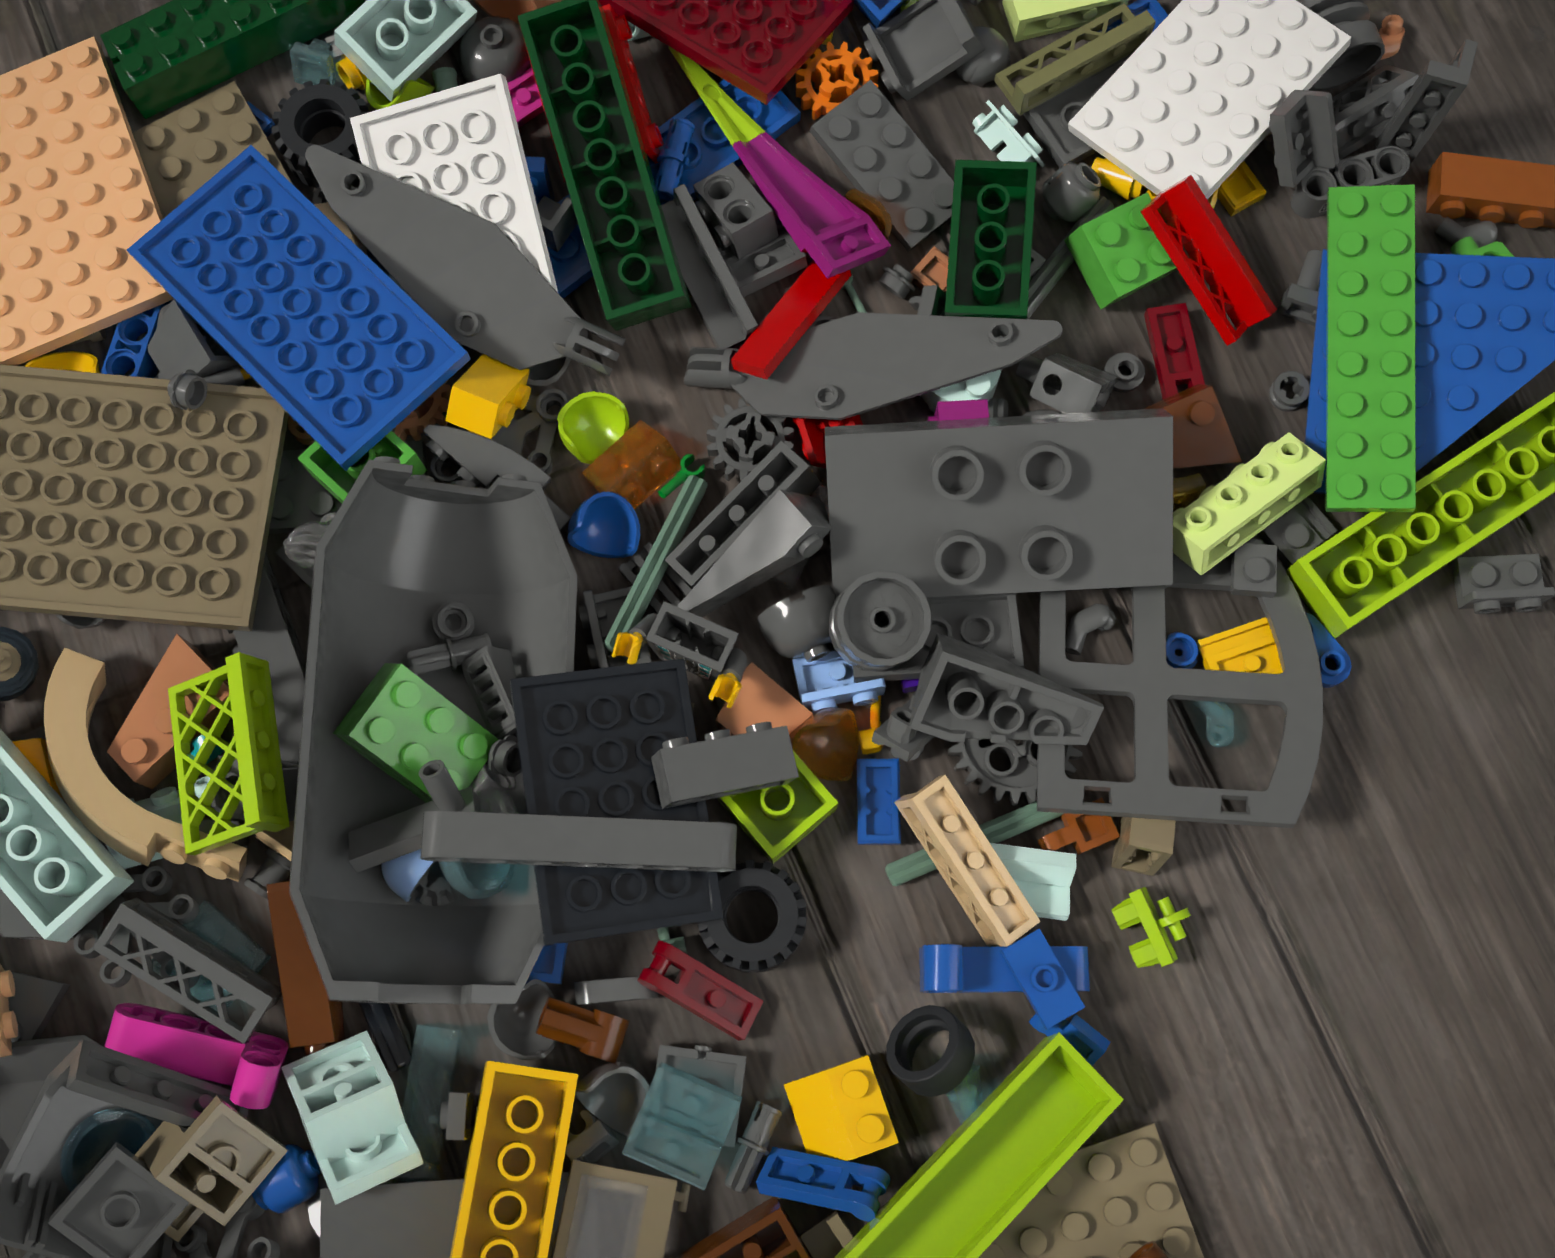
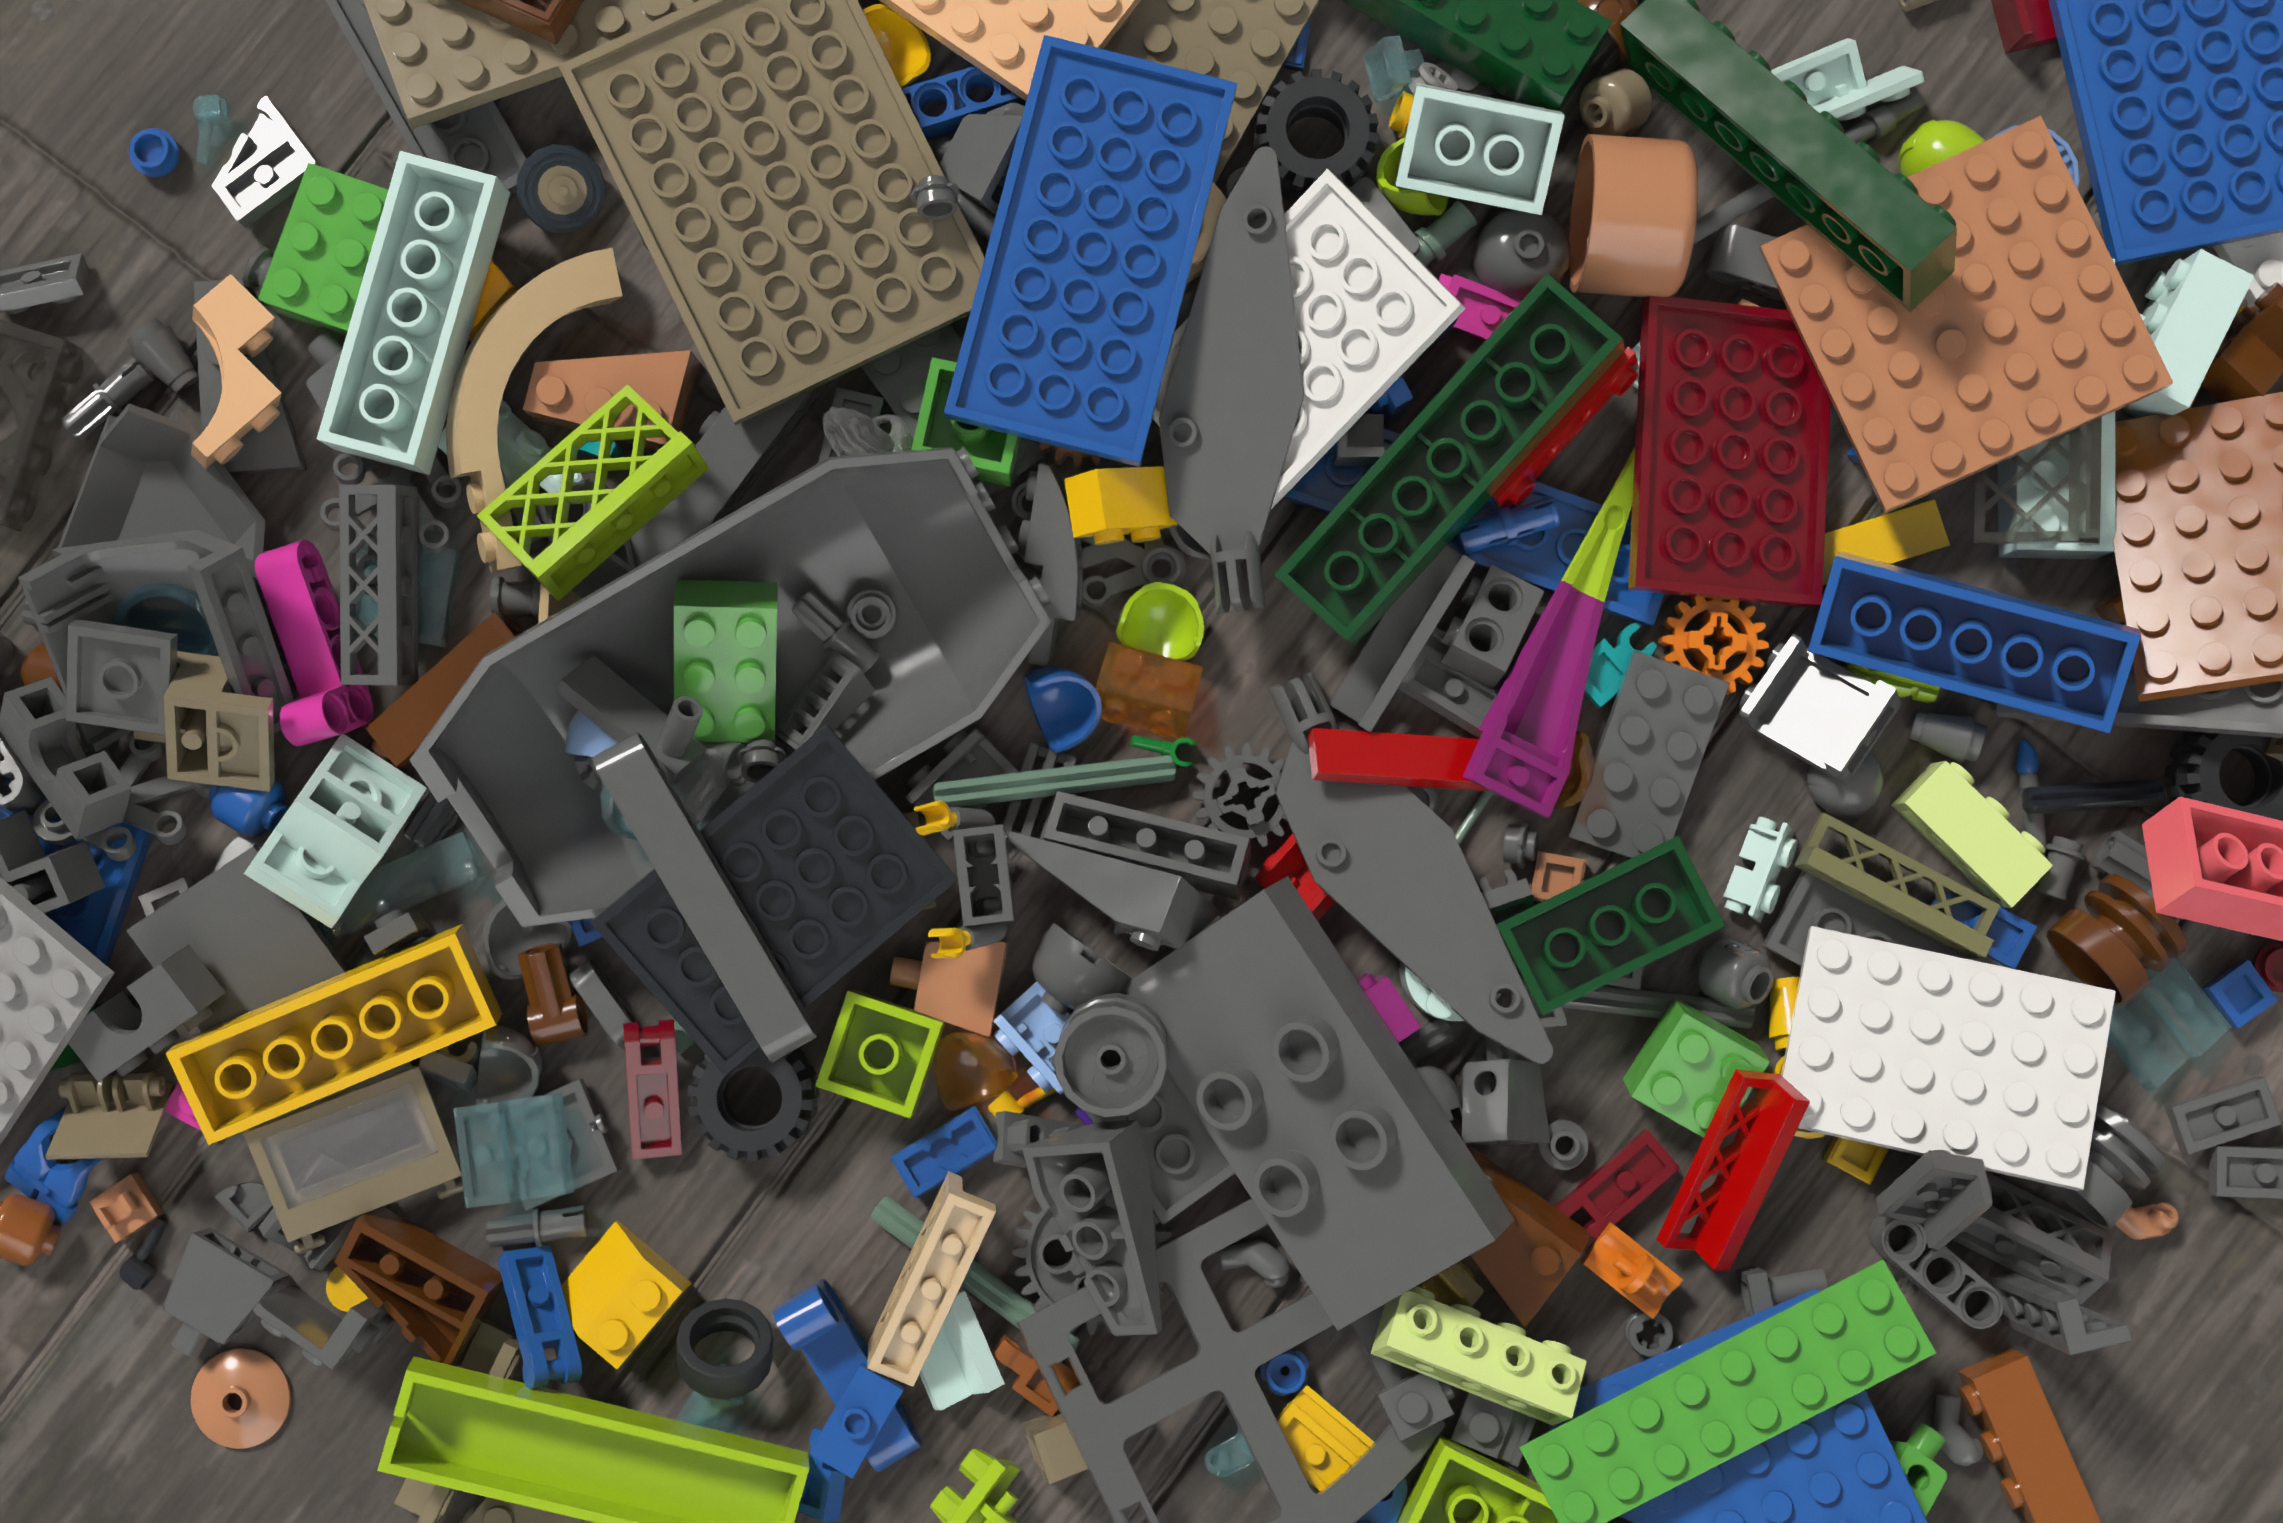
camera: 55 degrees right, 10 degrees up
(723, 764) = (870, 987): dark grey brick -> none
(812, 154) = (1609, 666): none -> teal plate
(1240, 371) = (1631, 1270): none -> orange hips

